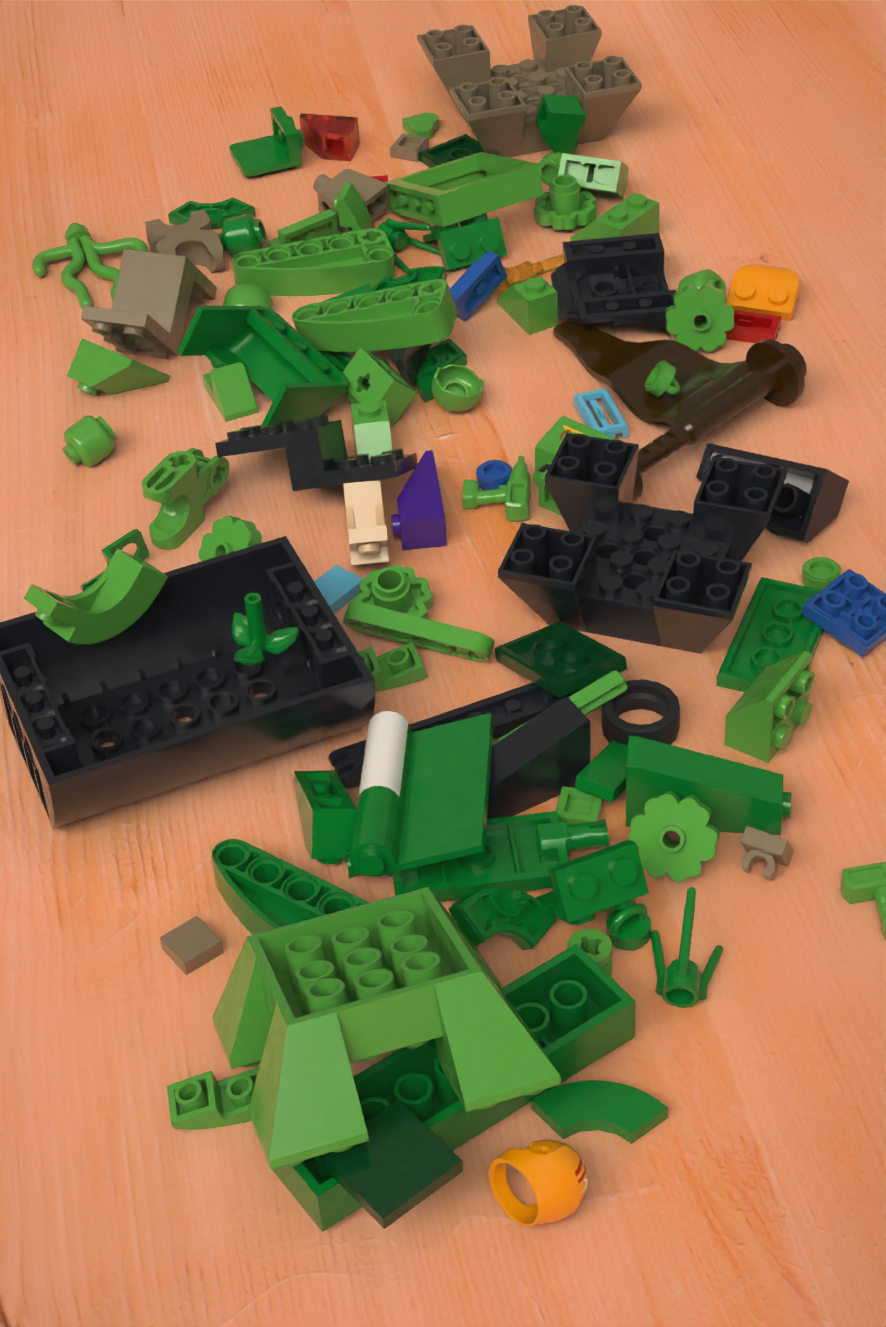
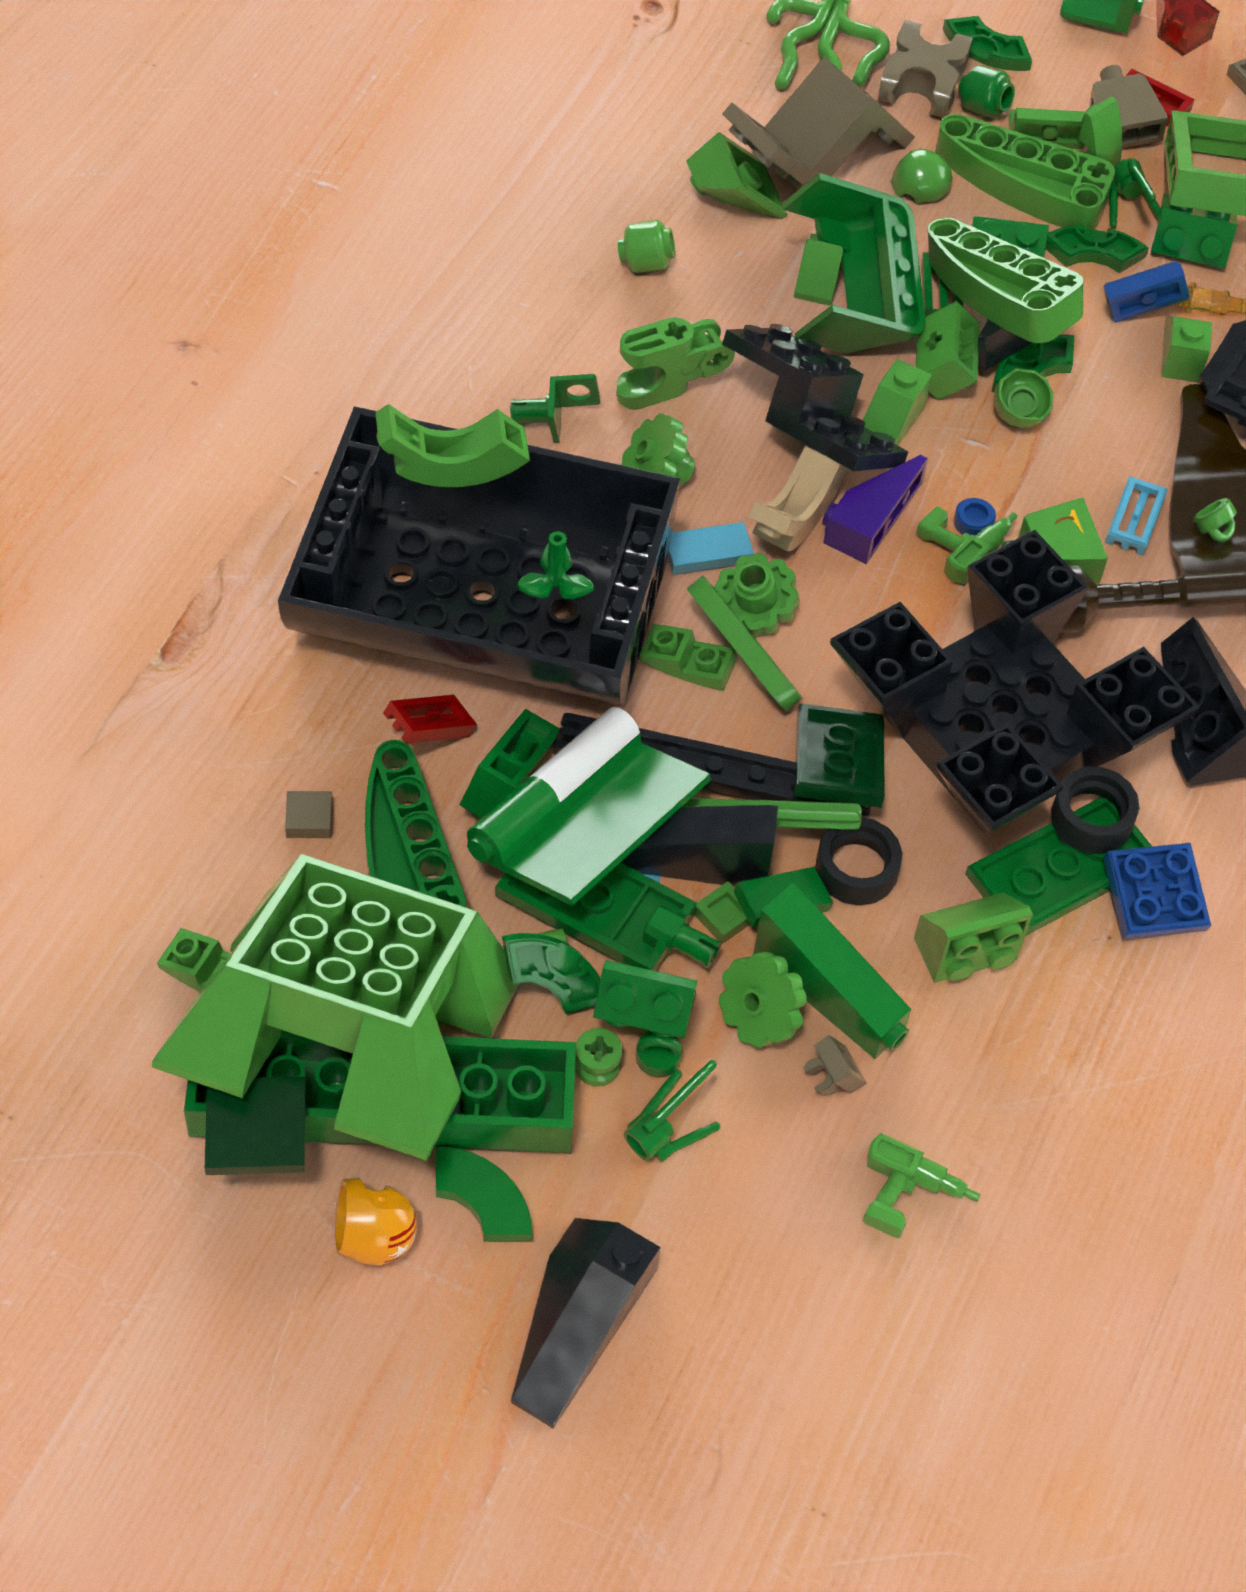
camera: 30 degrees right, 15 degrees up
(224, 817) = (434, 724): none -> red tile
(752, 1121) = (581, 1304): none -> black wedge
(773, 604) = (1106, 785): none -> black tyre
(820, 572) = (1171, 826): bright green tile -> none

